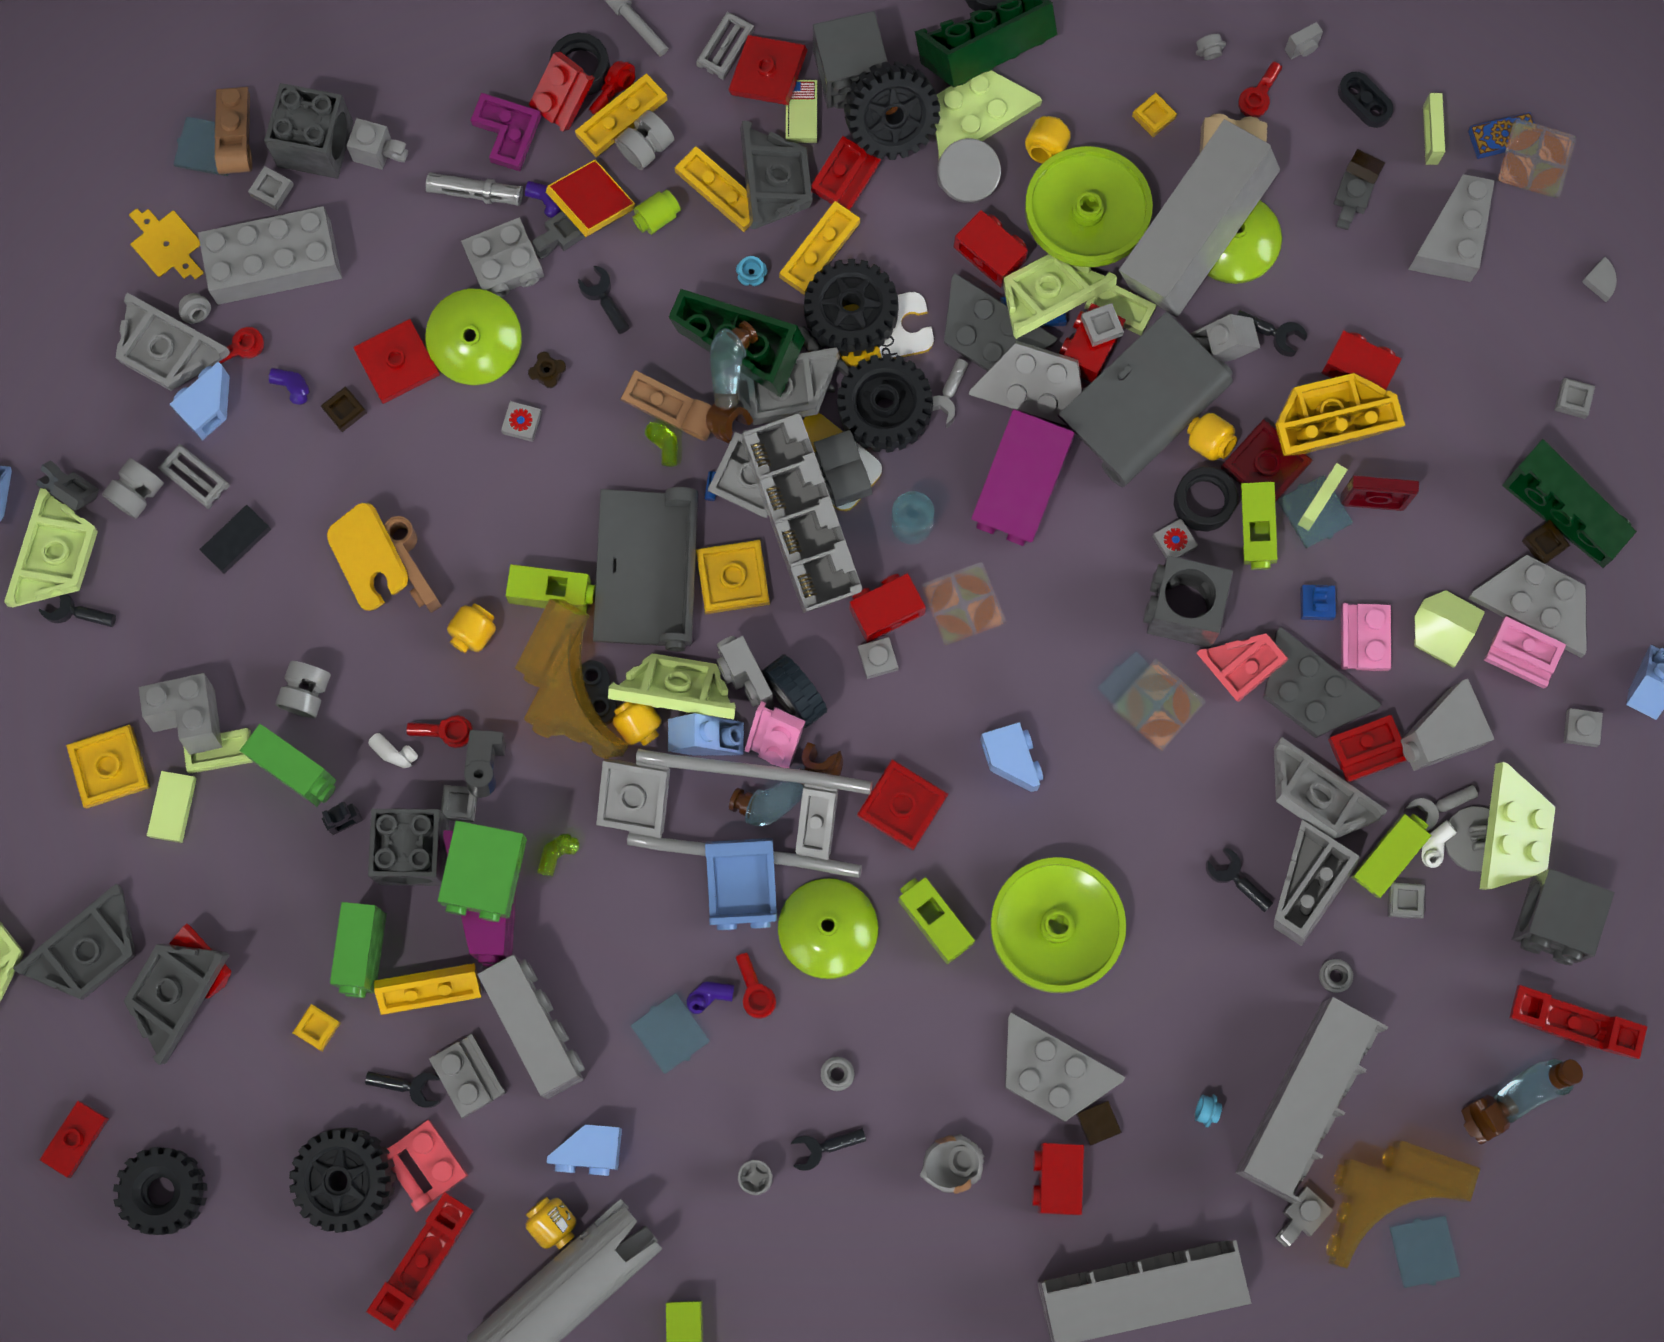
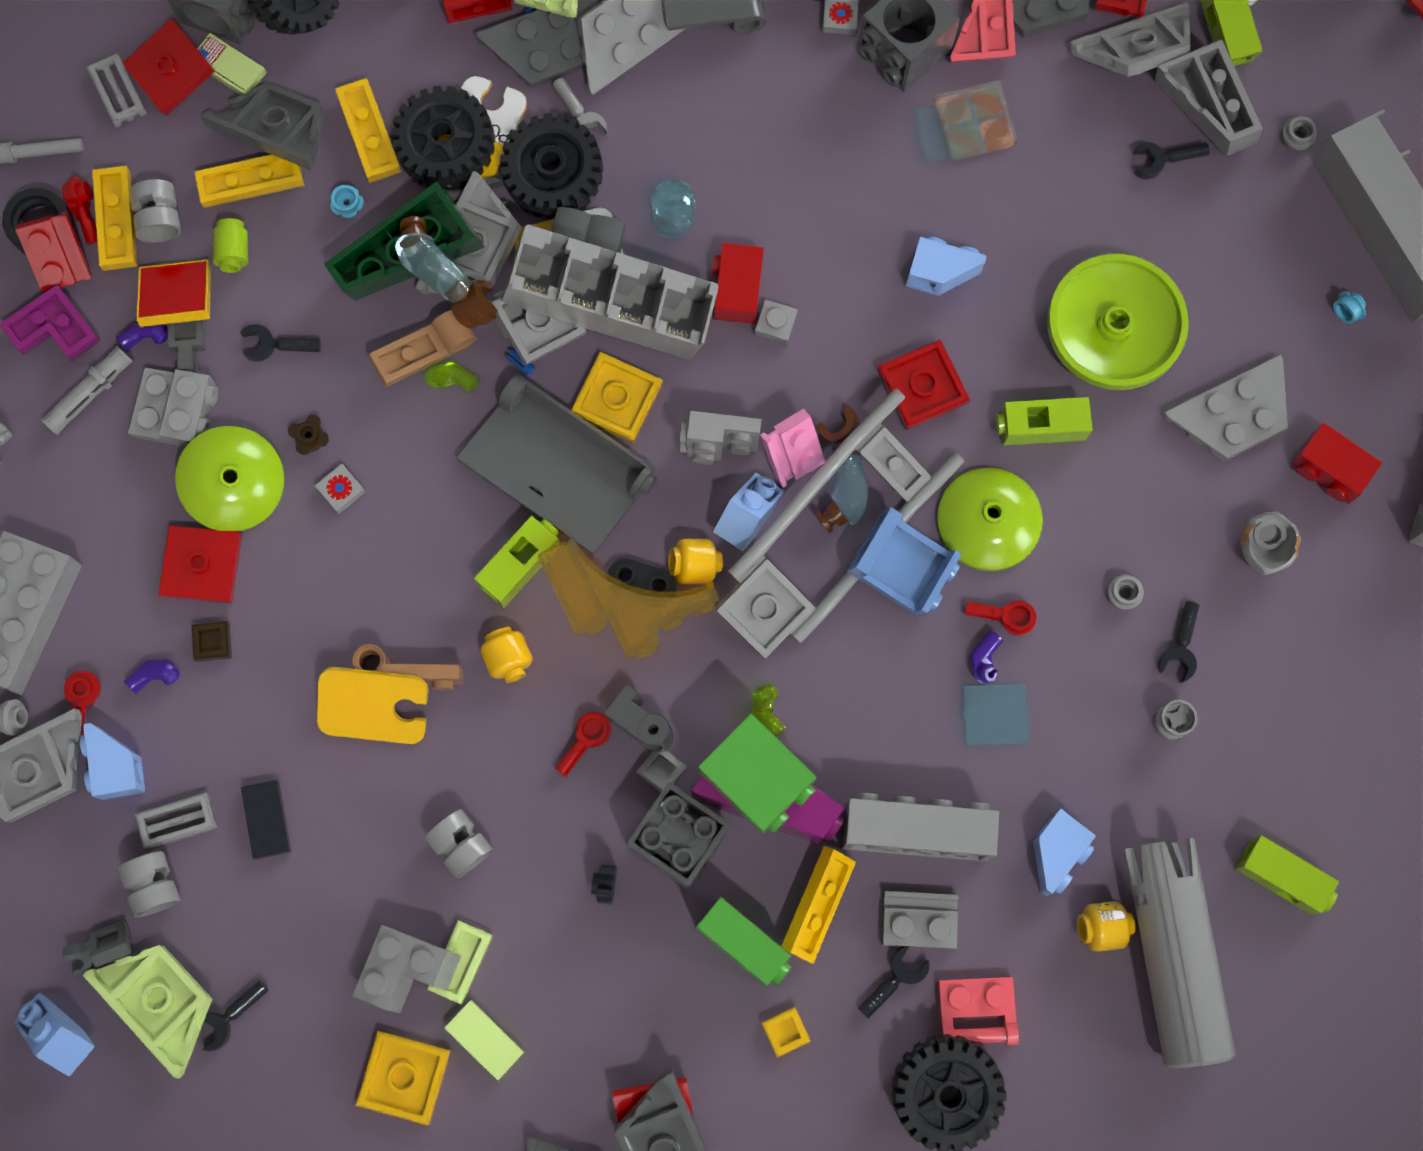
camera: 60 degrees left, 0 degrees up
(289, 765) = (526, 900): bright green brick -> none
(390, 753) = (572, 803): white arm -> none
(420, 1262) = (1066, 1069): red slope -> none
(676, 685) = (689, 504): yellowish green wing -> none
(794, 690) = (766, 400): black wheel -> none
(845, 174) = (315, 64): red plate -> none
(963, 603) = (776, 220): clear tile -> none
(1022, 477) = (701, 94): magenta slope -> none
(1098, 1123) = (1305, 402): dark brown tile -> none
(1406, 900) = (1273, 38): light grey tile -> none

